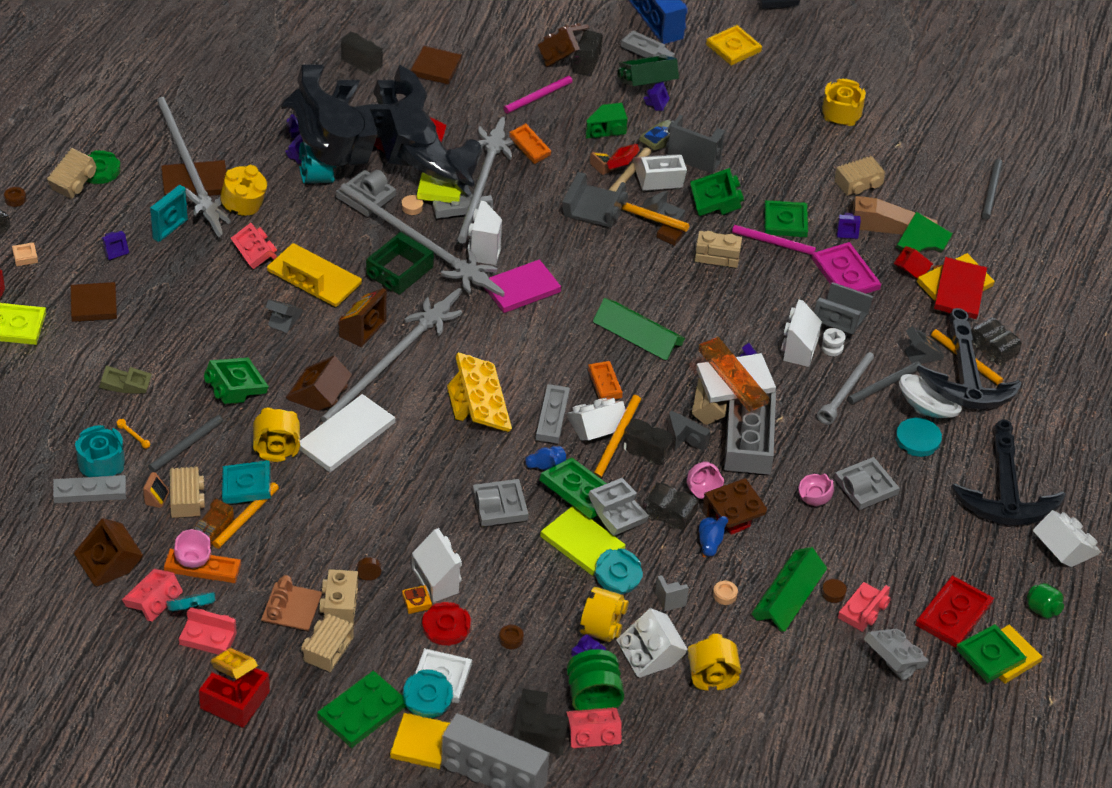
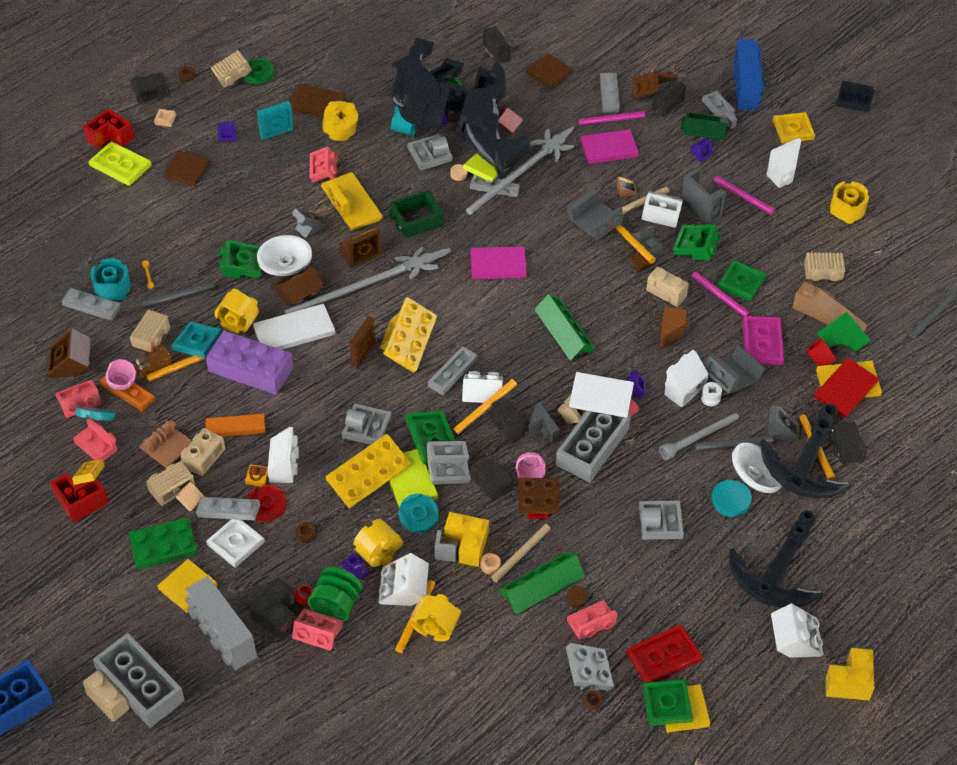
camera: 30 degrees right, 5 degrees up
(130, 382) = (166, 233): olive slope -> none
(155, 491) = (129, 321): slope -> none
(203, 201) = (308, 121): light grey piece -> none
(286, 356) = (284, 255): none -> white dish
(326, 484) = (249, 362): none -> medium lavender brick
(347, 558) = (236, 425): none -> orange tile
(360, 648) = (189, 496): none -> light nougat tile
(369, 568) = (237, 438): reddish brown tile -> none
(411, 644) = (228, 508): none -> light grey plate
(428, 693) = (212, 551): teal tile -> none
(441, 416) = (362, 342): none -> reddish brown tile
(466, 271) = (461, 236): light grey piece -> none
(485, 234) = (490, 214): white slope -> none
(517, 67) = (609, 92): none -> light grey plate
(530, 143) = (577, 154): orange plate -> none
(538, 547) = (368, 471): none -> yellow bracket
(546, 458) = (423, 403): blue animal -> none
(557, 698) = (302, 594): none -> red plate
(558, 123) = (609, 146): none -> dark pink tile
(605, 380) = (509, 359): orange plate -> none
(607, 121) = (648, 155): green slope -> none
(623, 156) = (641, 187): red tile -> none
(657, 135) = (676, 180): slope -> none
(687, 683) = (409, 629): none -> light orange bar
(689, 568) = (471, 536): none -> yellow brick
(711, 534) = (506, 513): blue animal -> none
(730, 130) = (744, 195): none -> dark pink bar
(733, 374) = (598, 391): clear orange plate -> none
(748, 286) = (673, 325): none -> dark orange slope
(748, 570) = (521, 552): none -> tan bar
(755, 84) = (783, 163): none -> white slope
(816, 489) = (615, 509): bright pink hair -> none
(848, 226) = (787, 304): dark purple tile -> none
(922, 682) = (592, 693): none -> reddish brown hinge
(1045, 600) = (743, 677): green head -> none

